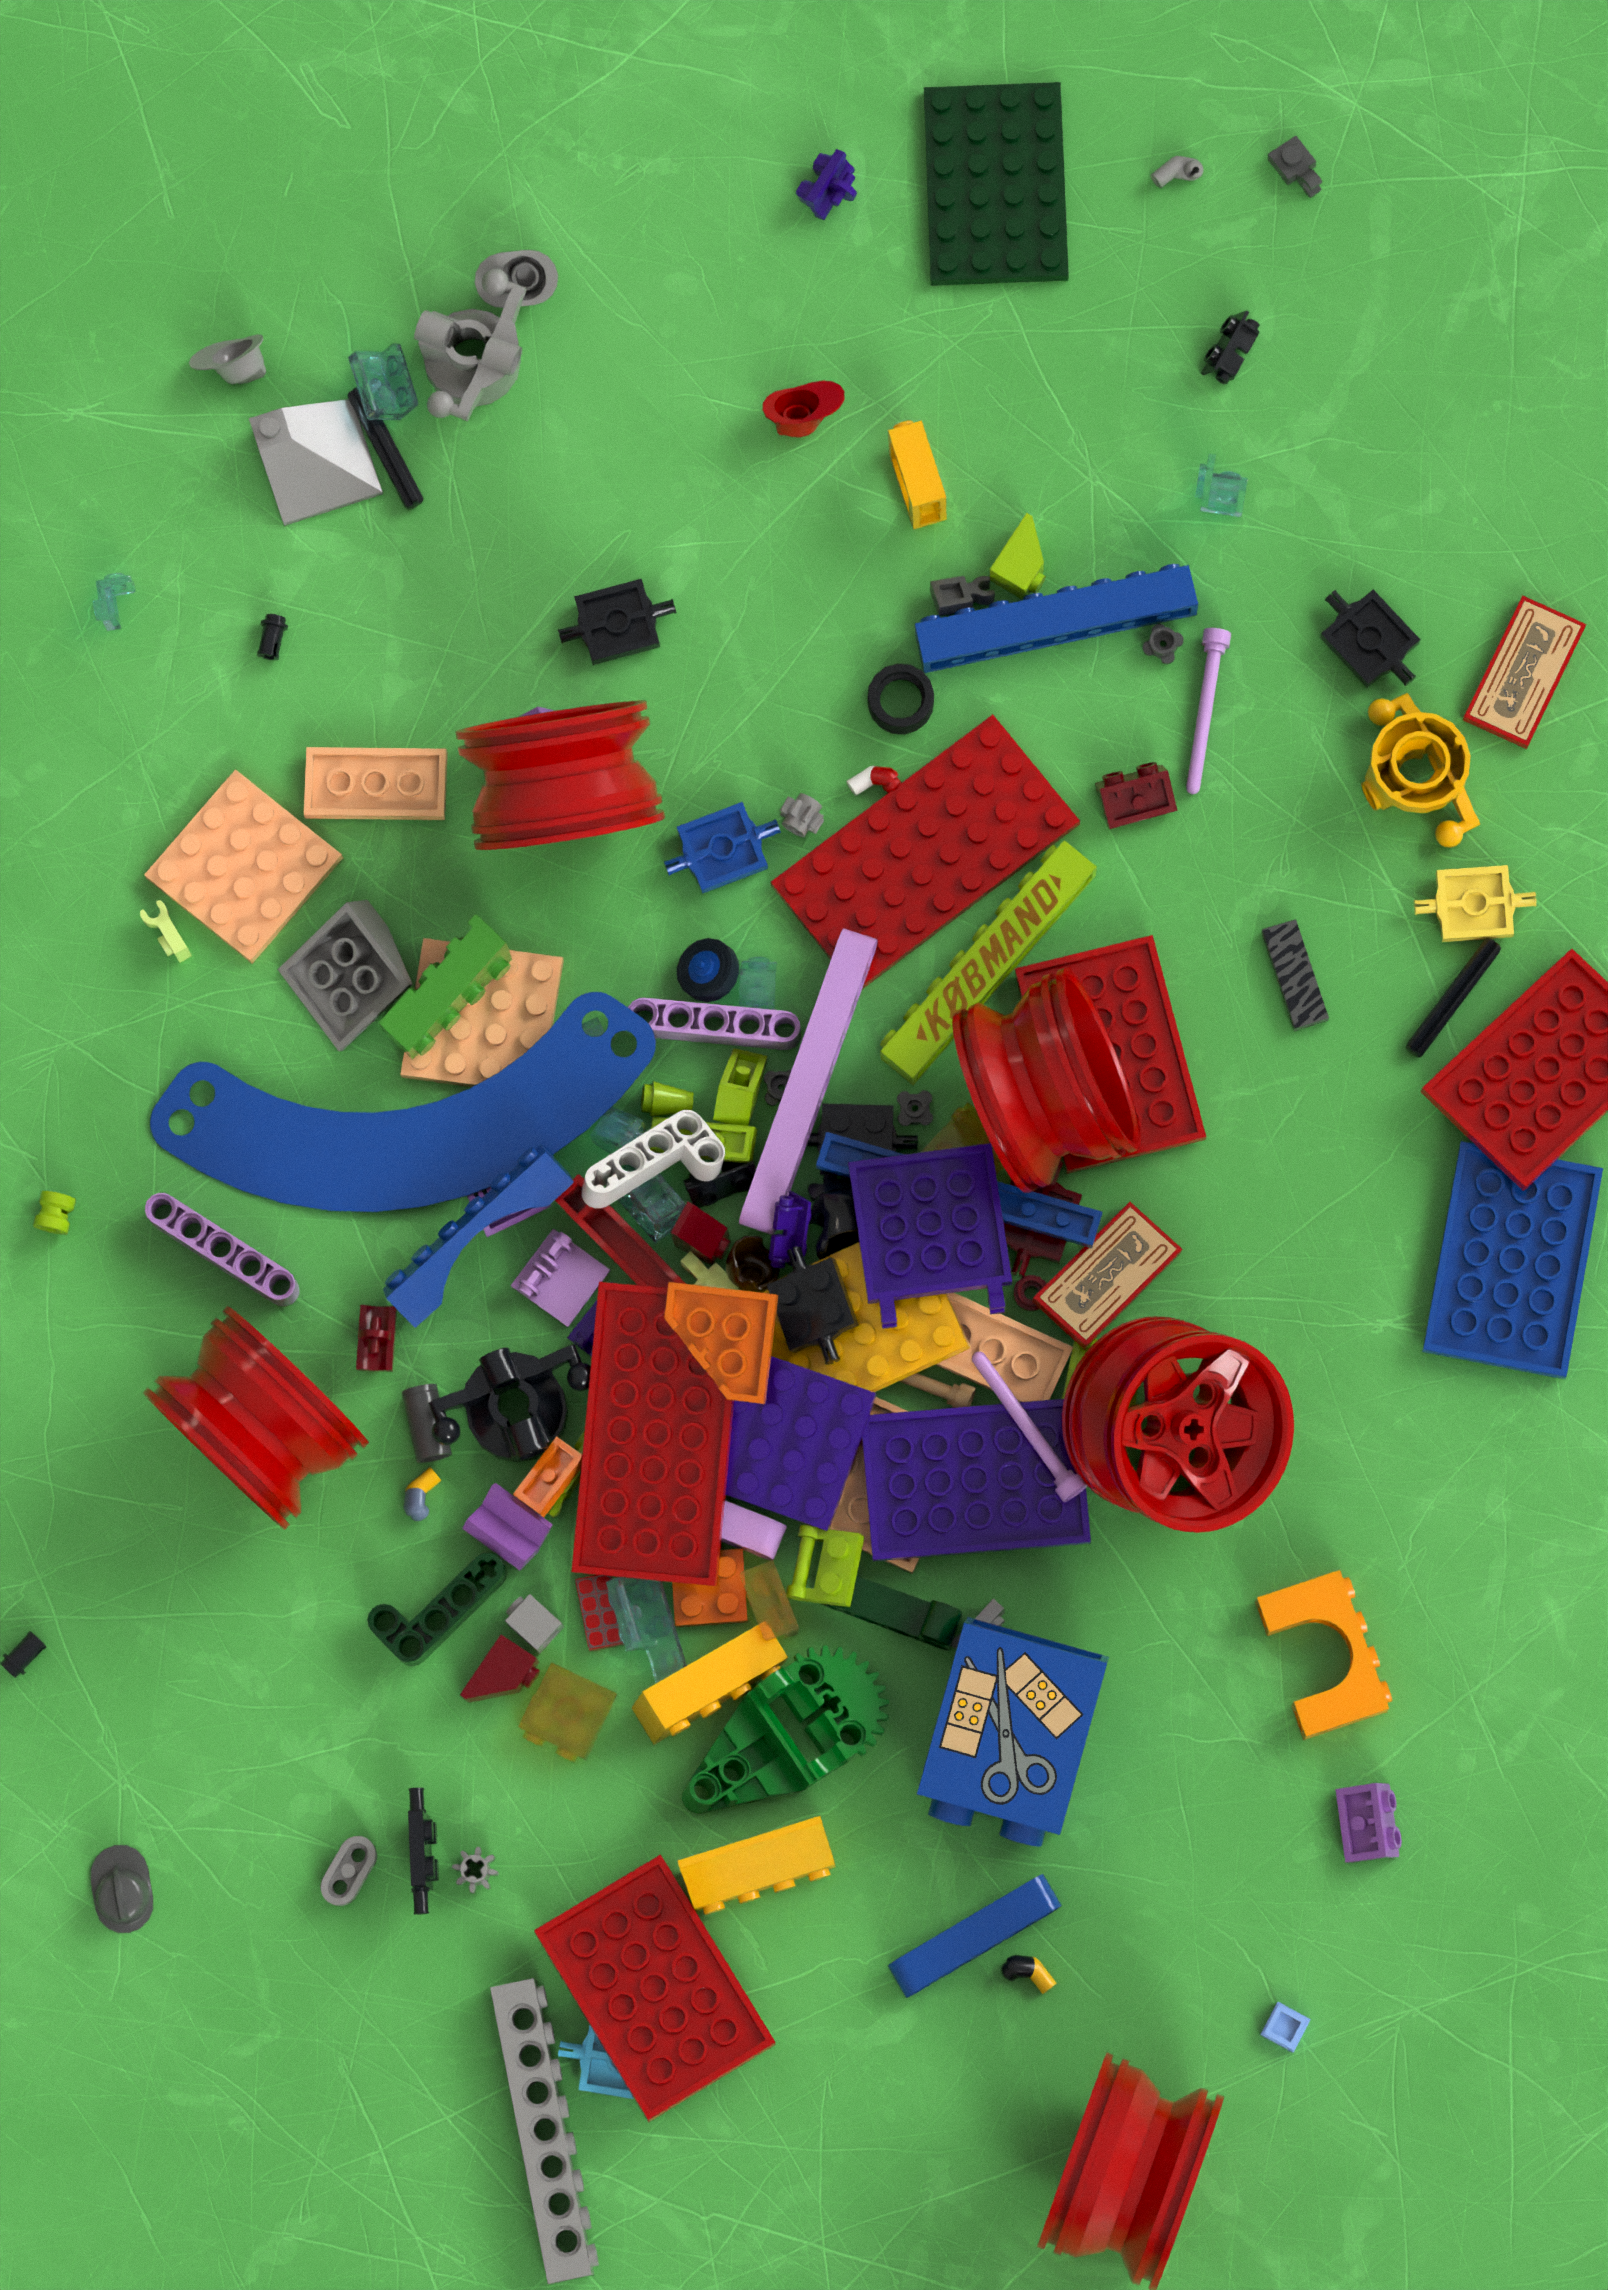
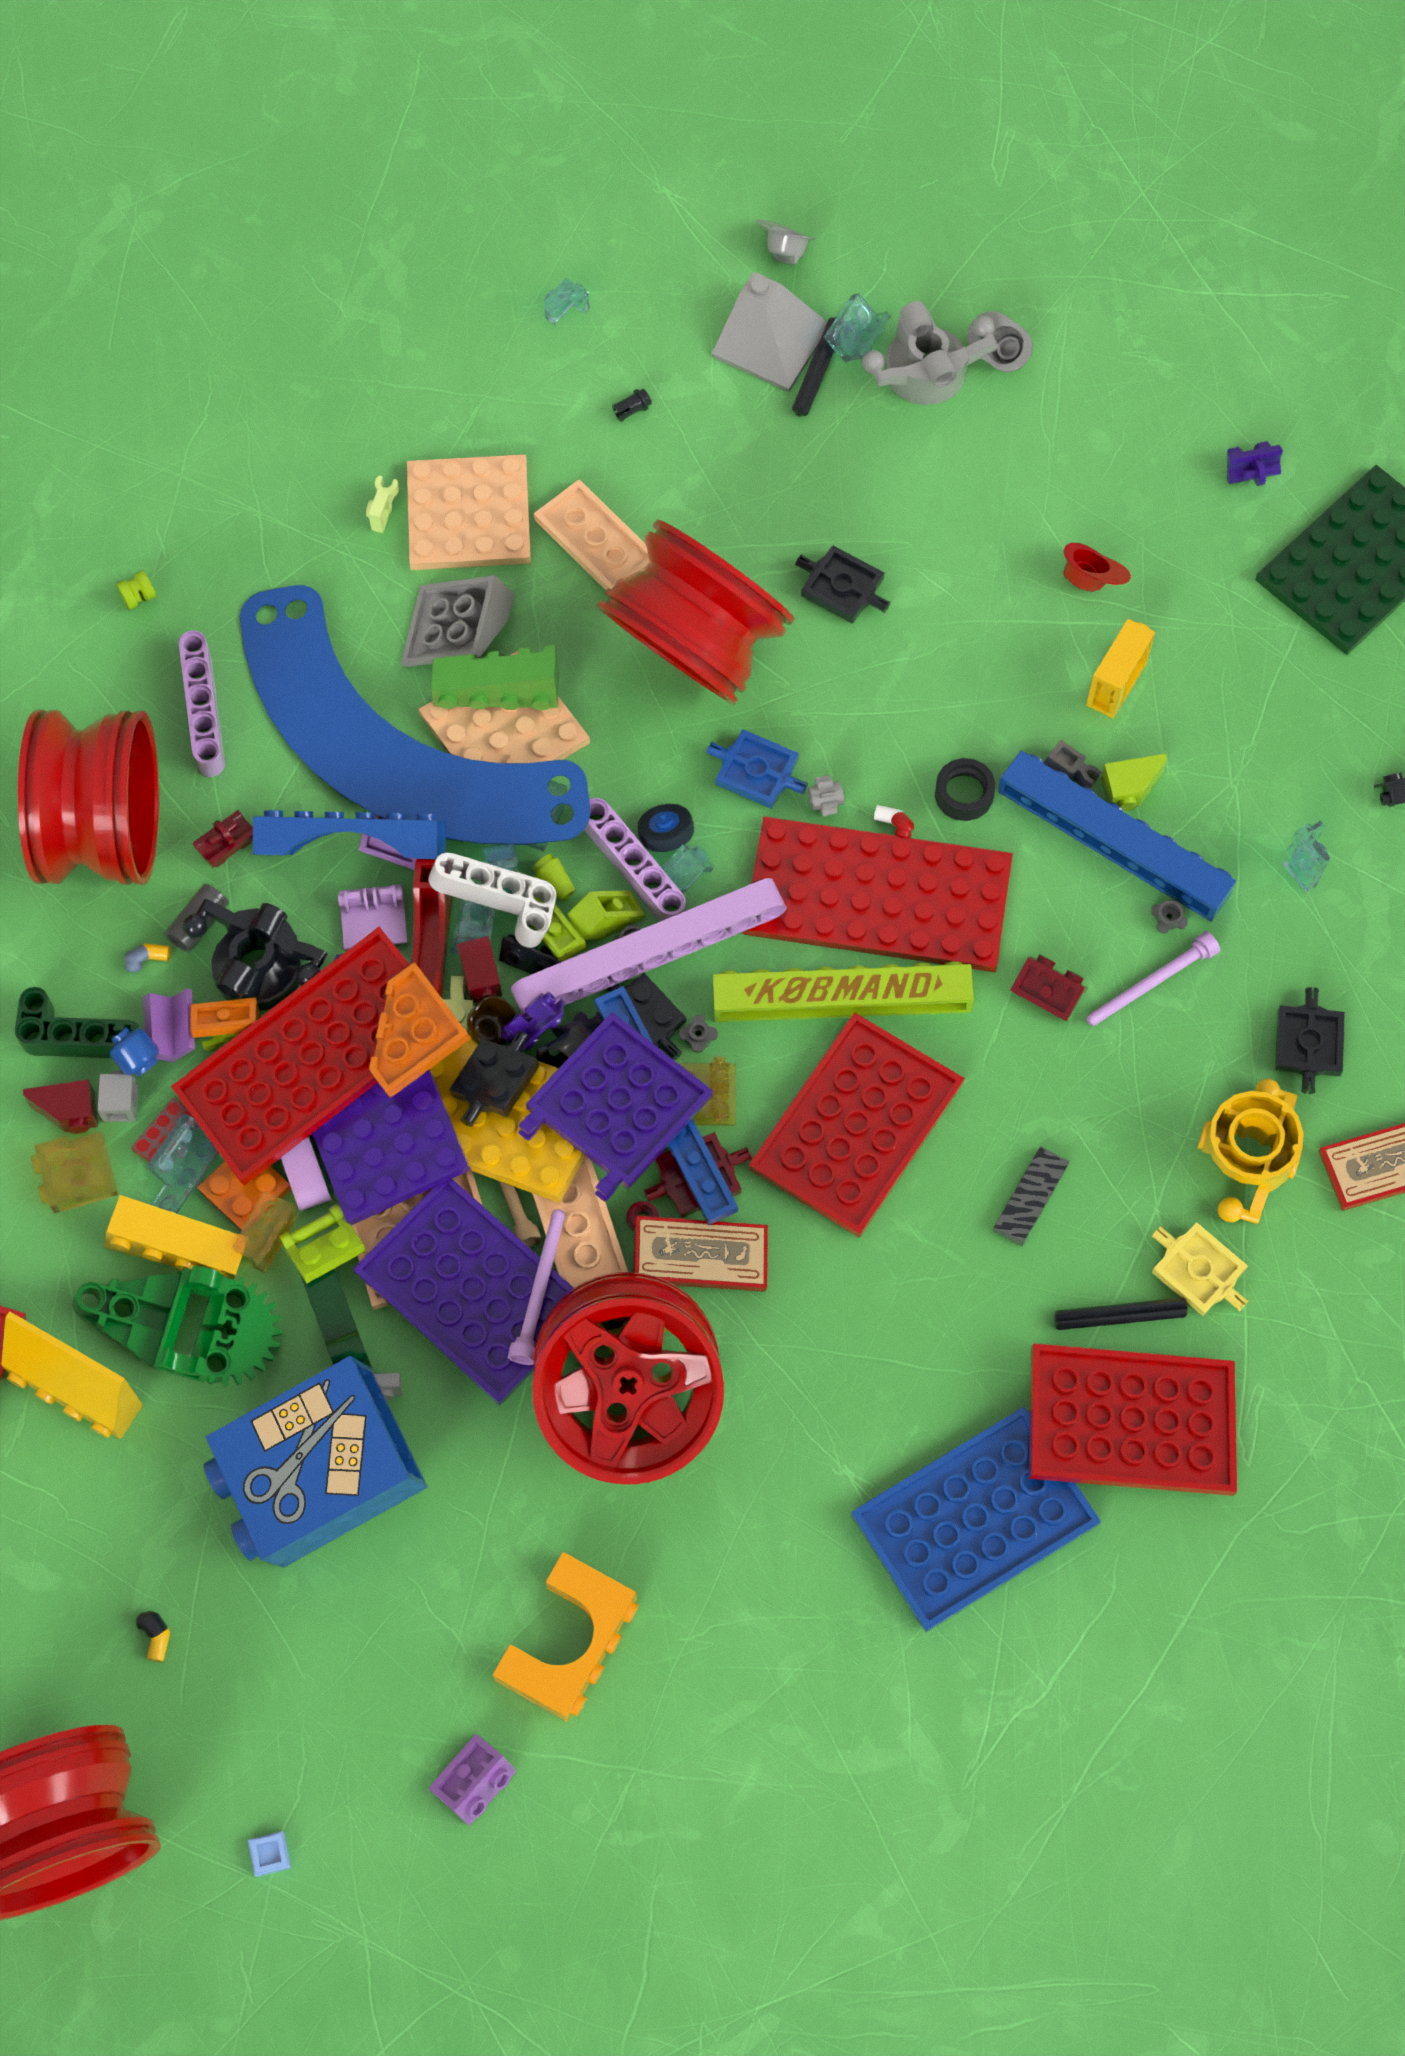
camera: 40 degrees right, 10 degrees down
(516, 1575) = (134, 1051): none -> blue head
(974, 1935) = (148, 1573): blue beam -> none
(1046, 1080) = (785, 1080): red wheel -> none

